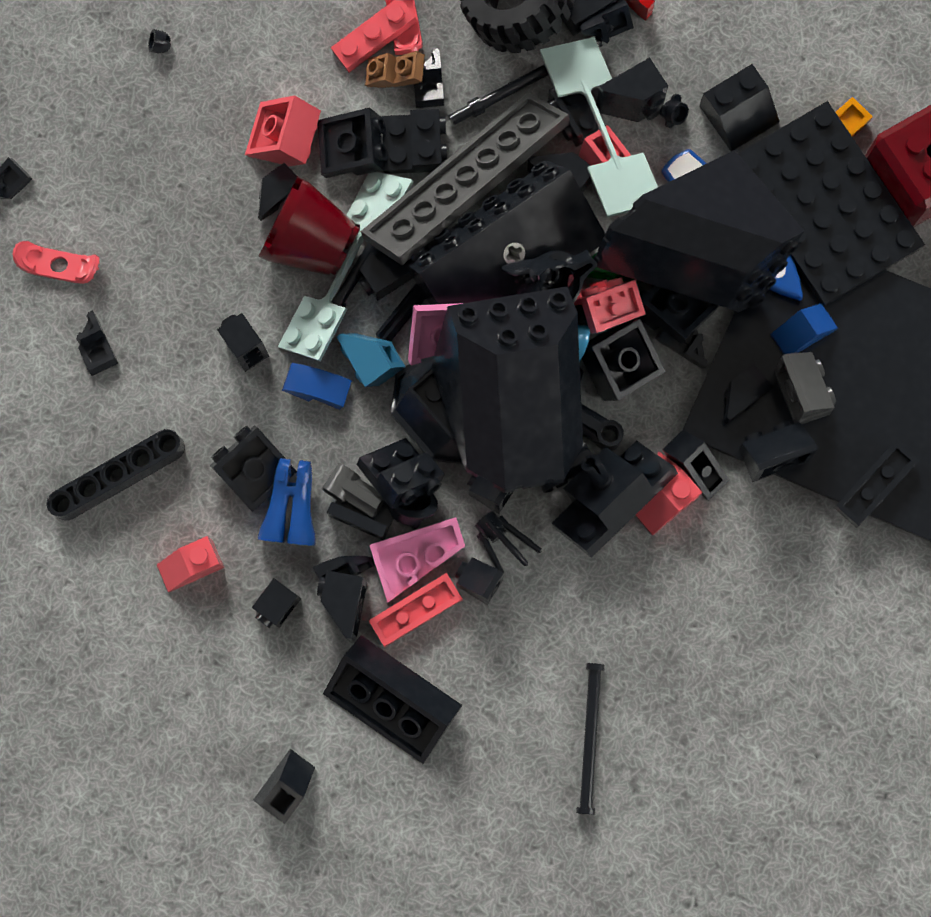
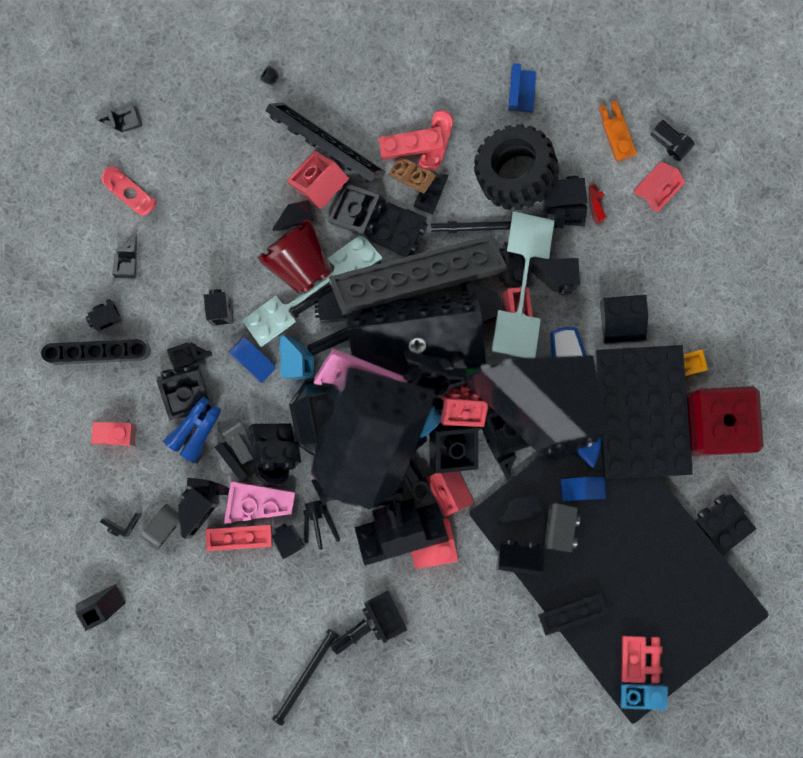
camera: 25 degrees right, 5 degrees up
(103, 427) = (103, 316): none -> black brick
(231, 420) = (186, 354): none -> black slope
(256, 681) = (116, 530): none -> black bracket
(260, 81) = (330, 145): none -> black plate
(275, 604) = (153, 488): black brick -> none
(311, 647) = (160, 527): none -> dark grey beam
(391, 699) = (194, 586): black slope -> none
(620, 658) = (350, 637): none -> black axle
(644, 419) = (450, 492): none -> coral panel
(649, 611) = (384, 616): none -> black bracket
(674, 111) = (579, 298): black plate -> none
(697, 462) = (466, 538): black slope -> none

